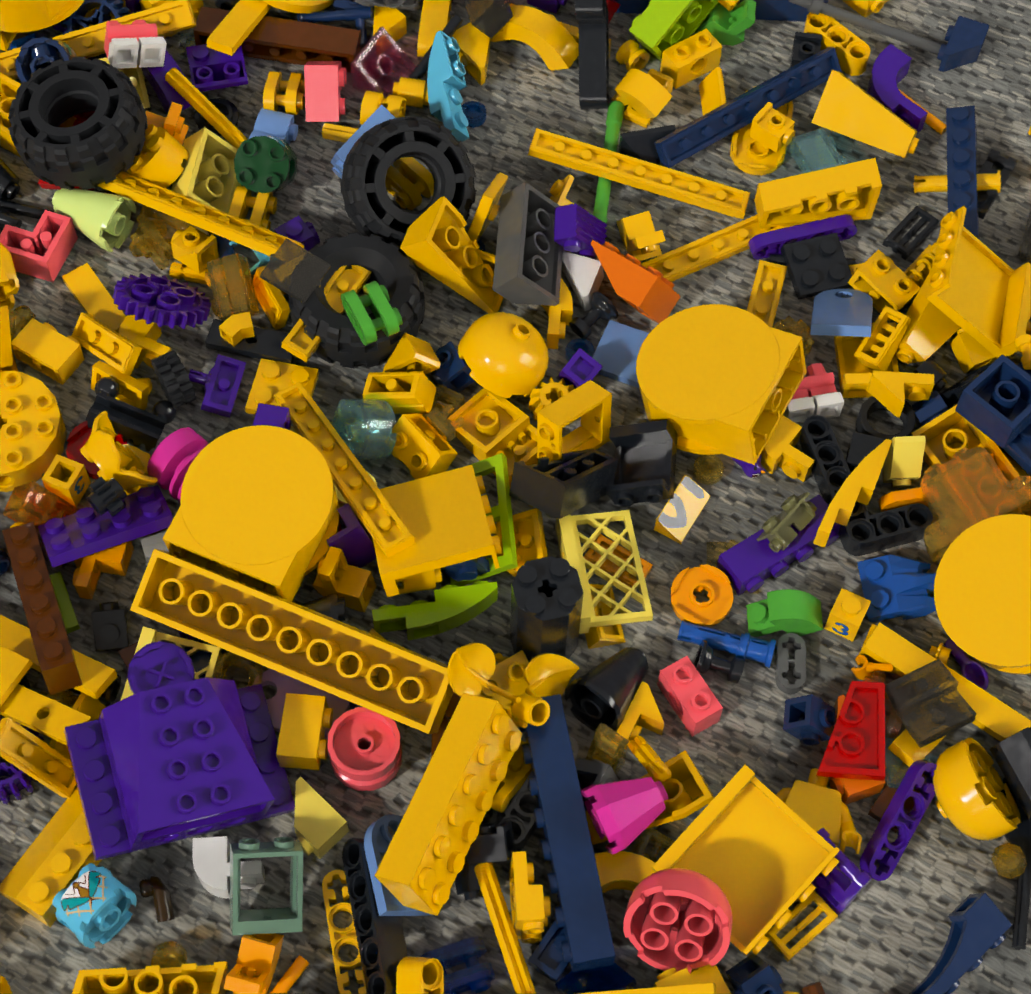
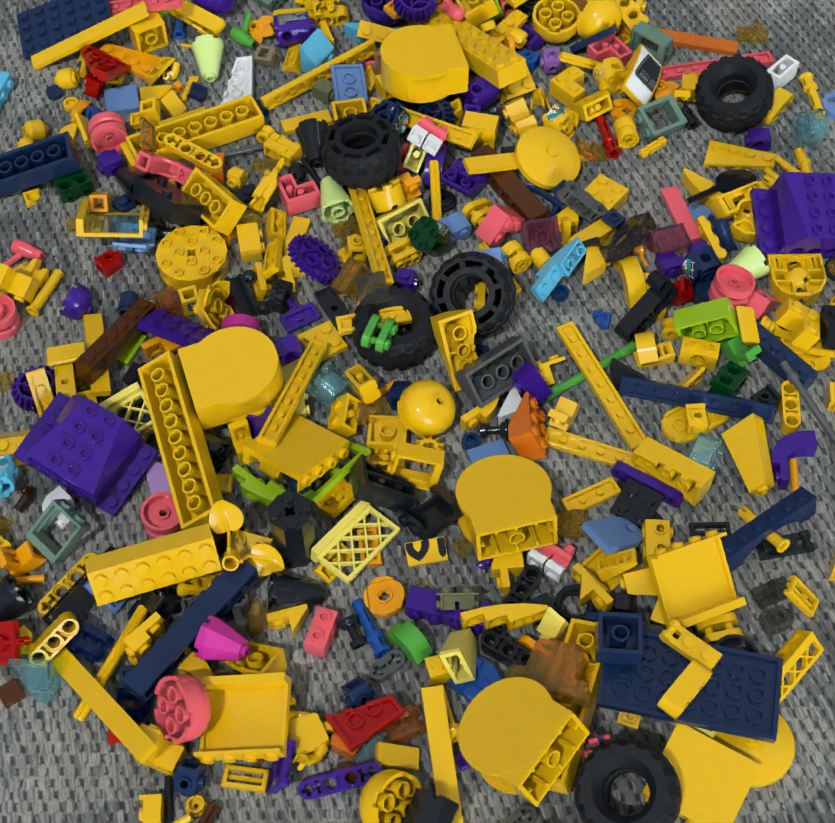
camera: 50 degrees right, 5 degrees down
(49, 305) = (275, 224): none -> yellow slope
(106, 496) = (186, 316): black gear -> none
(159, 666) = (124, 404): dark purple tile -> none
(237, 328) = (332, 297): yellow piece -> none
(303, 731) = (146, 484): yellow brick -> none
(316, 821) = (113, 527): light yellow slope -> none
(402, 33) = (564, 226): none -> yellow tile
(412, 355) = (387, 373): yellow slope -> none
(488, 207) = (498, 335): yellow plate -> none
(550, 105) = (602, 318): none -> blue tile
(579, 369) = (454, 447): dark purple brick -> none
(649, 759) = (265, 637): yellow axle -> none
(753, 61) = (729, 379): none -> dark green brick
(859, 573) = (460, 655): none -> light yellow slope
(868, 667) = (418, 702): light orange hand -> none
(929, 703) = (417, 743): clear smoke slope -> none

